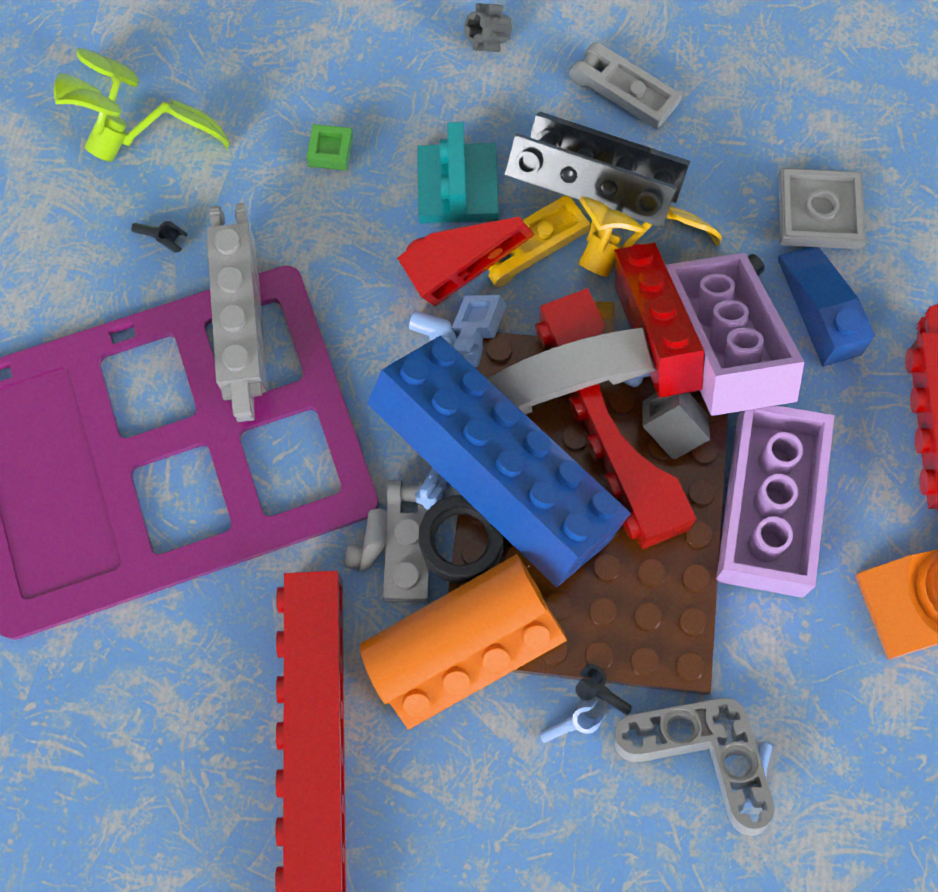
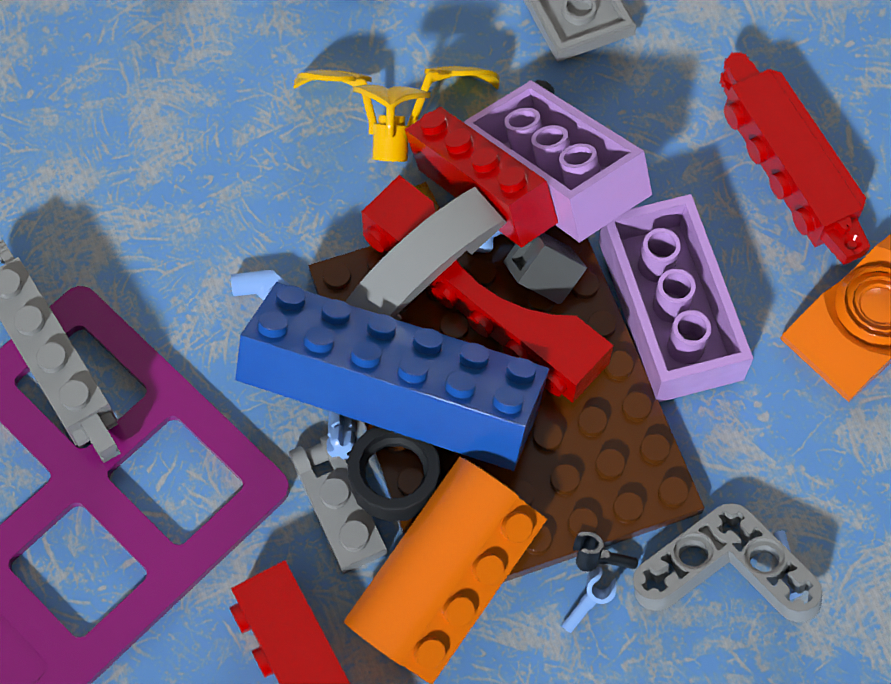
camera: 30 degrees left, 5 degrees down
(329, 147) = (60, 151): bright green plate -> none
(375, 540) = (305, 518): light grey arm -> none
(455, 257) = (247, 204): red slope -> none
(457, 180) = (209, 130): teal bracket -> none
(477, 319) = (300, 255): light blue plate -> none
(553, 229) = (314, 156): yellow plate -> none
(598, 166) = (344, 55): black fence -> none
(826, 306) = (630, 100): blue slope -> none

